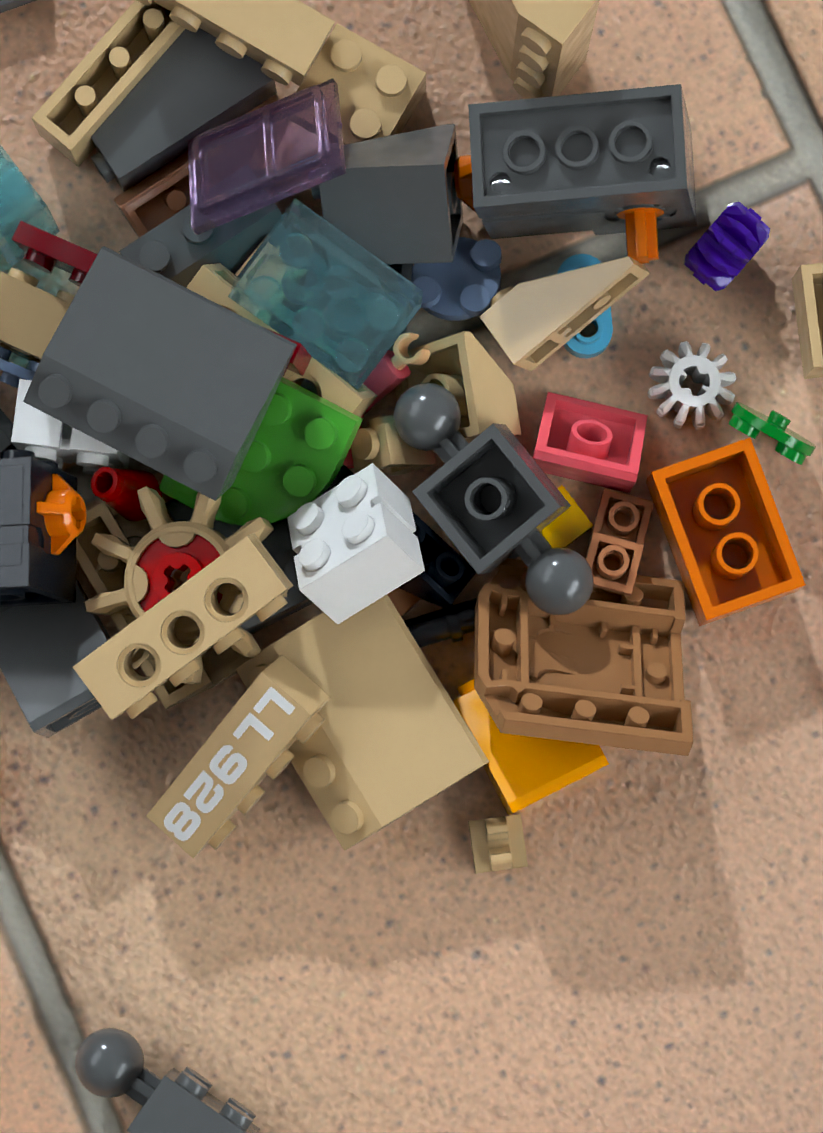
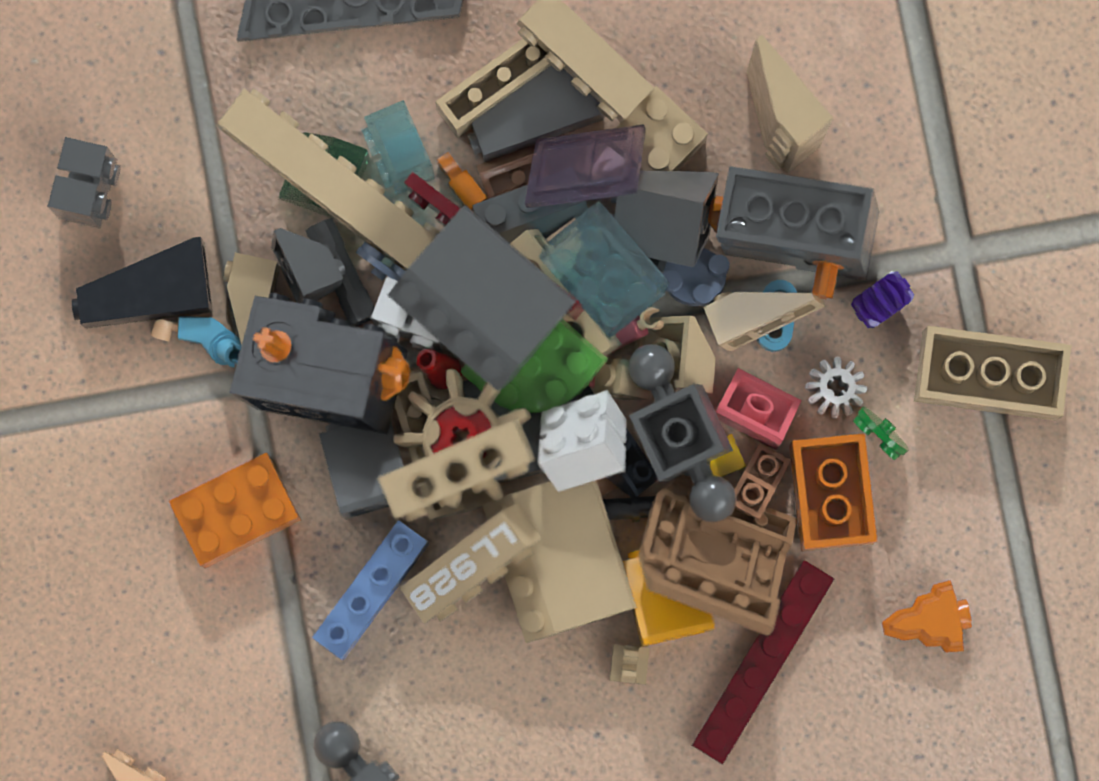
camera: 15 degrees right, 0 degrees up
(96, 225) = (461, 182): none -> orange bar
(106, 830) = (370, 590): none -> medium blue brick
(684, 798) = (762, 663): none -> dark red plate

